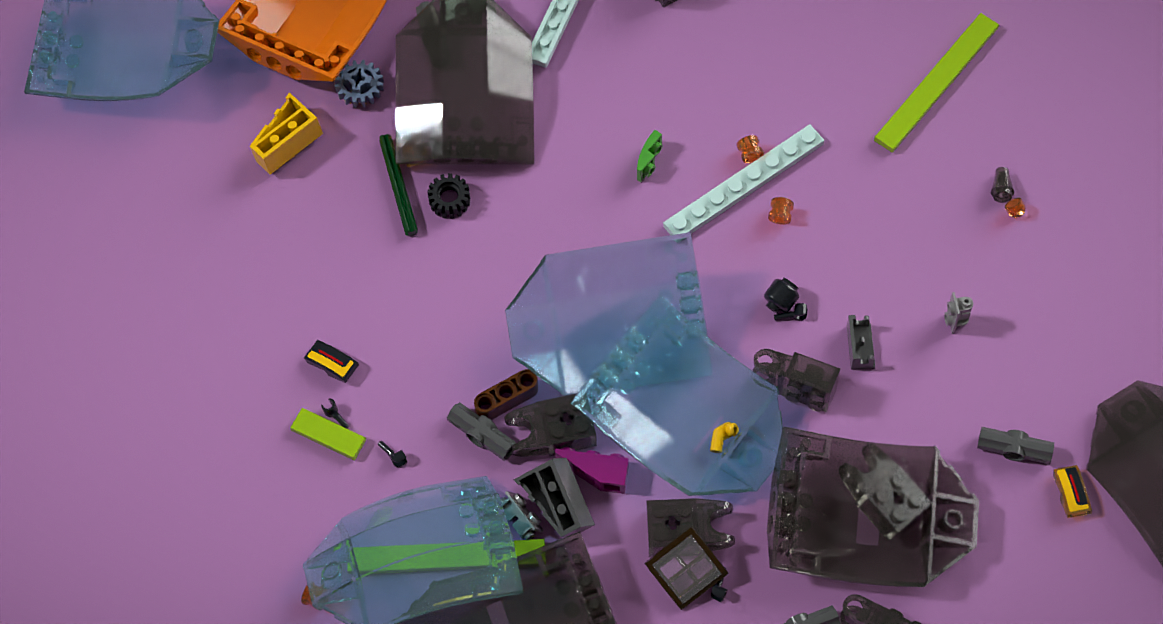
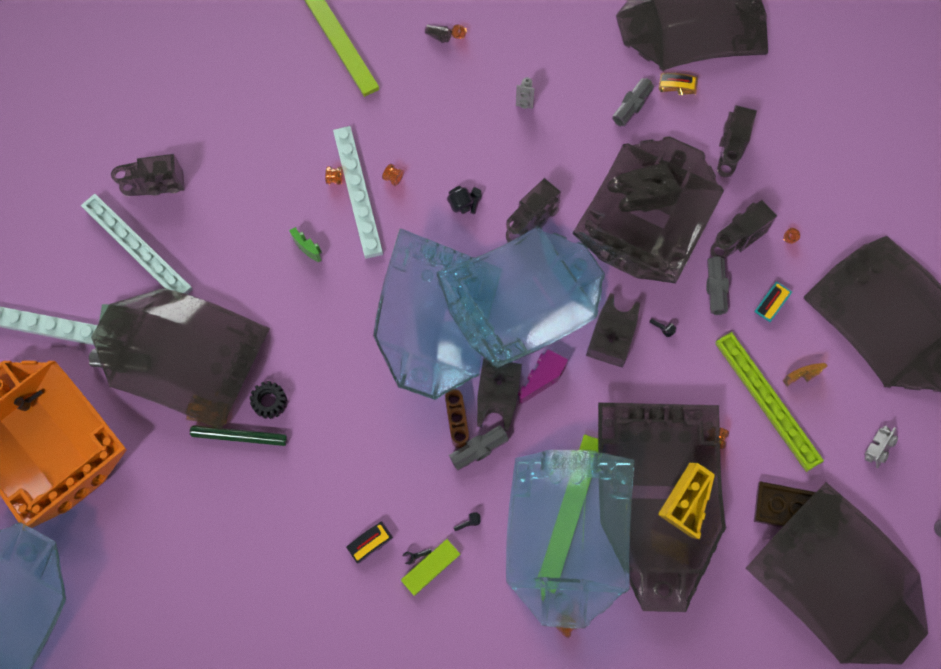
camera: 70 degrees left, 5 degrees up
(286, 135) = (152, 507): yellow wedge -> none
(366, 89) = (139, 424): sand blue gear -> none
(527, 521) = (565, 441): light grey hinge -> none
(558, 496) = (557, 410): dark grey wedge -> none
(686, 568) = (648, 341): clear piece -> none
(722, 433) = (552, 281): yellow arm -> none
(860, 343) = (517, 166): dark grey hinge -> none
(1013, 582) = (735, 138): none -> clear smoke brick

